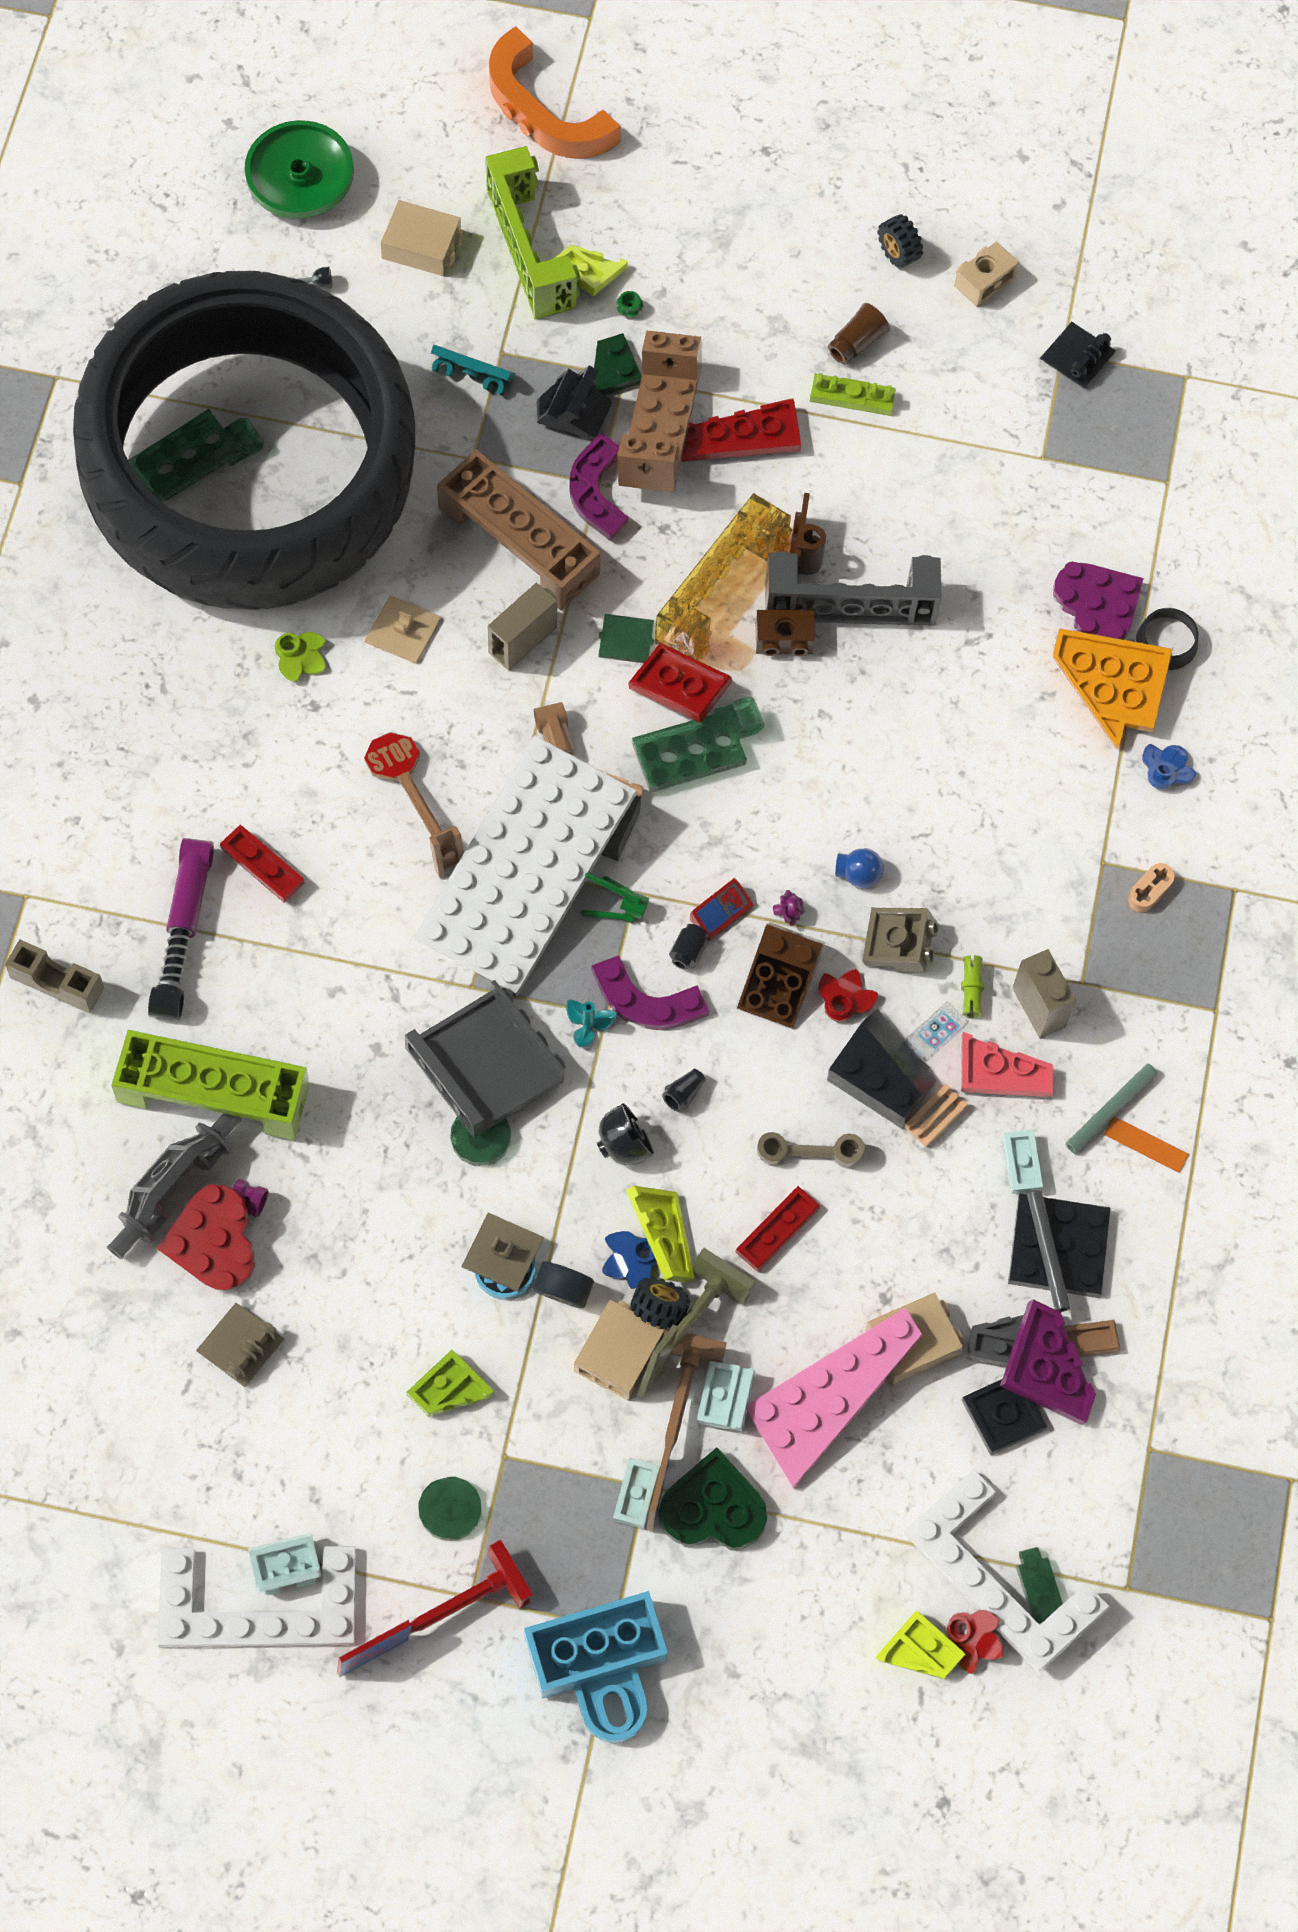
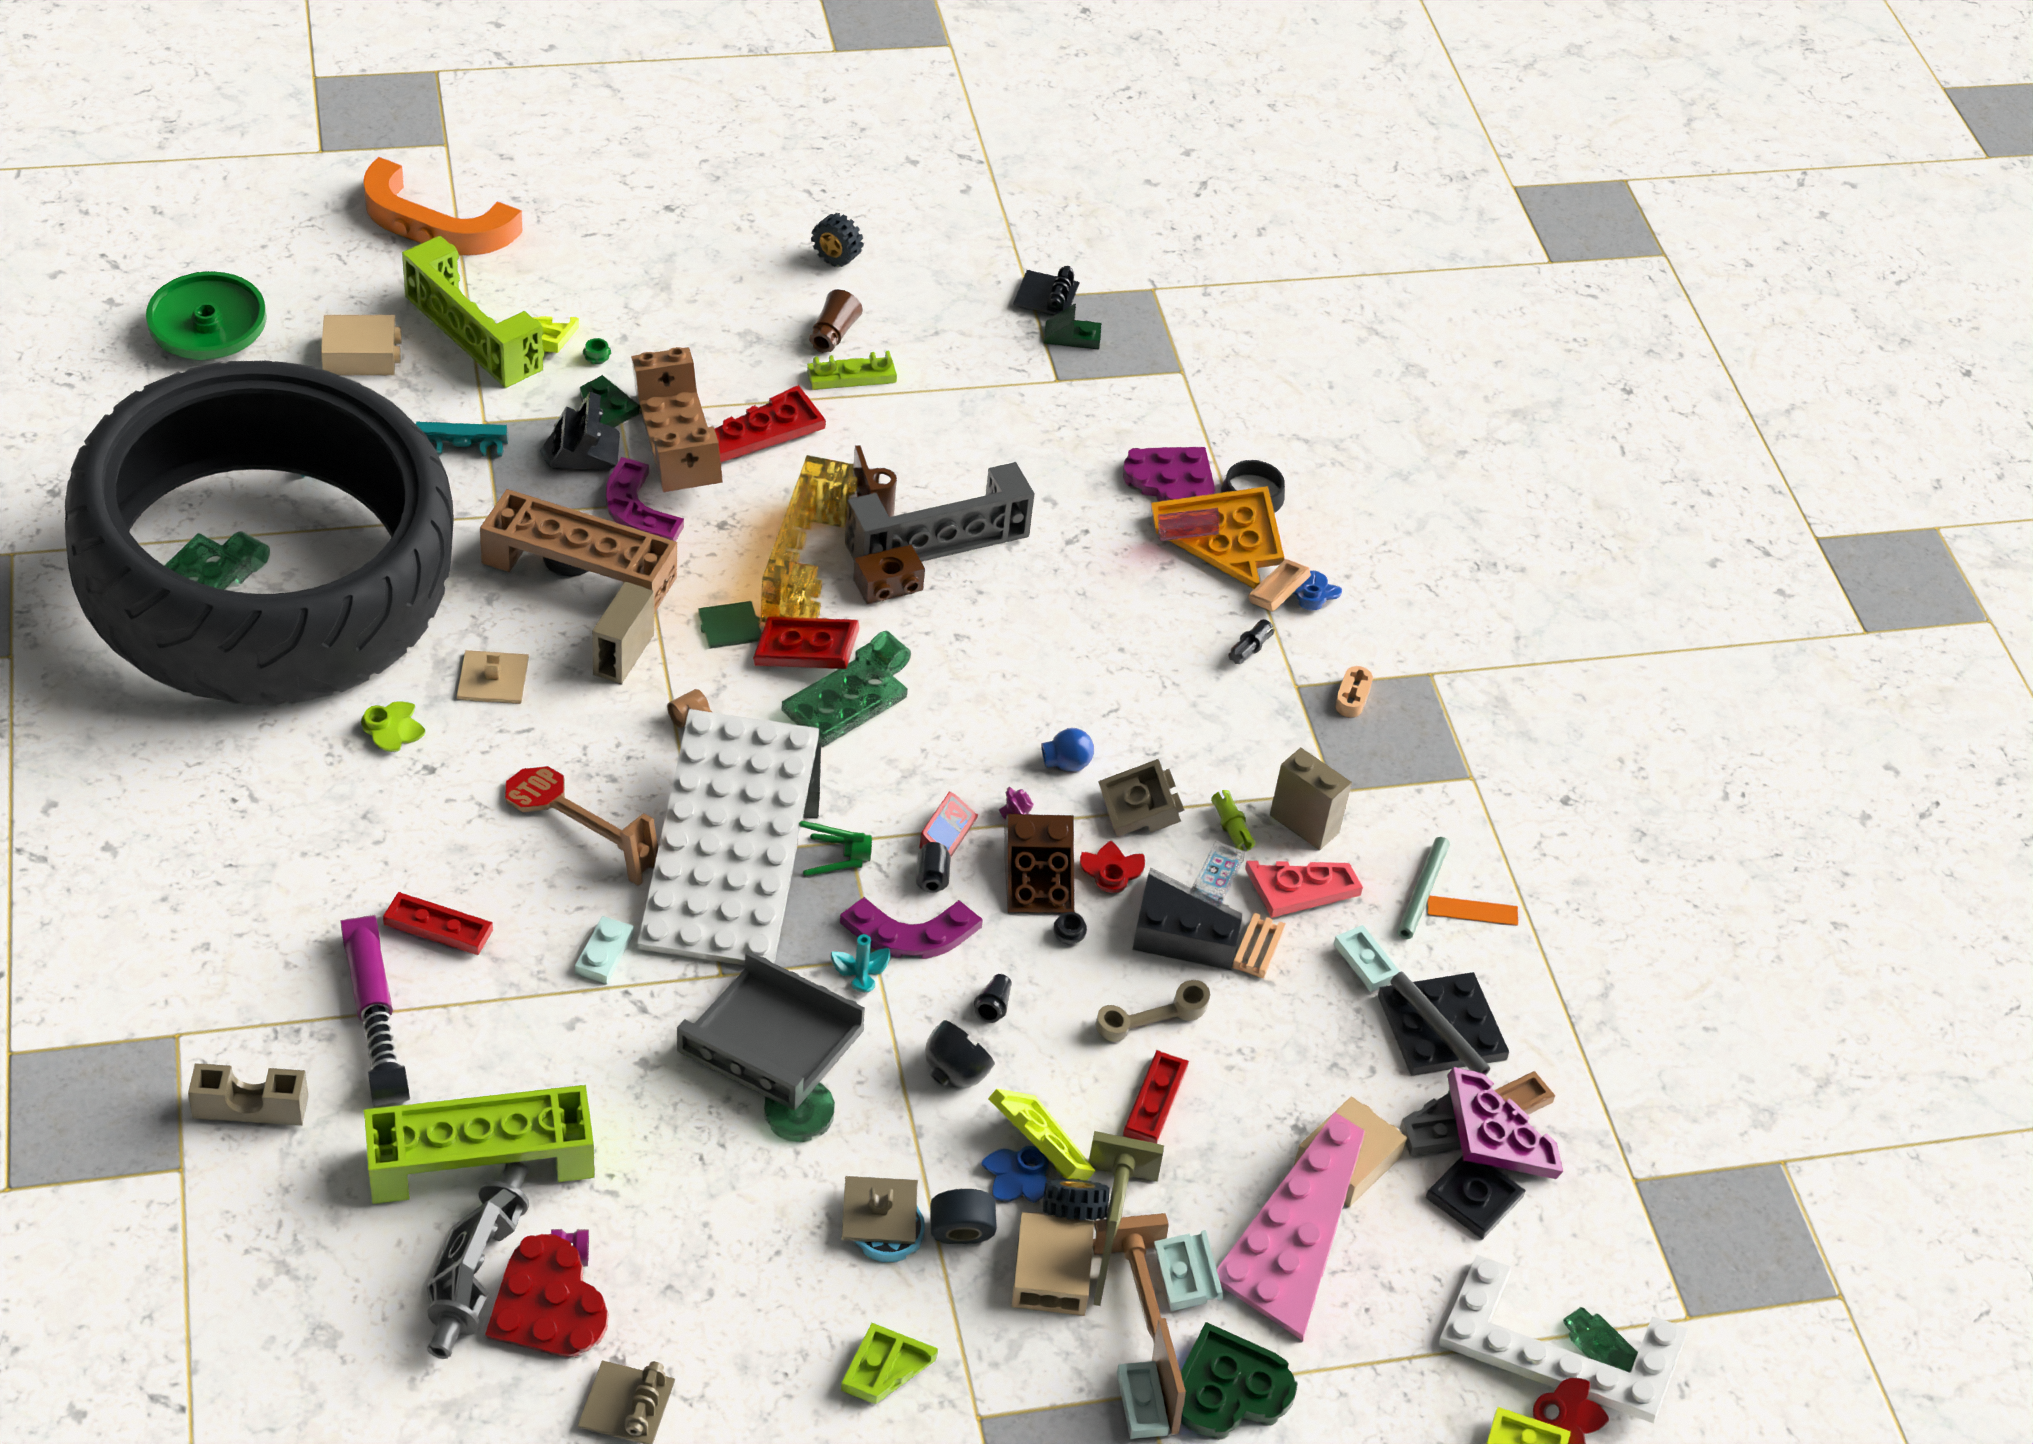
camera: 25 degrees left, 20 degrees down
(386, 932) = (604, 950): none -> light aqua plate
(780, 1036) = (1070, 928): none -> black plate
(999, 269) = (929, 250): tan brick -> none
(1078, 667) = (1188, 524): none -> clear pink tile
(1079, 407) = (1067, 331): none -> dark green slope
(1081, 806) = (1251, 641): none -> black axle
(1137, 754) = (1279, 585): none -> light nougat tile

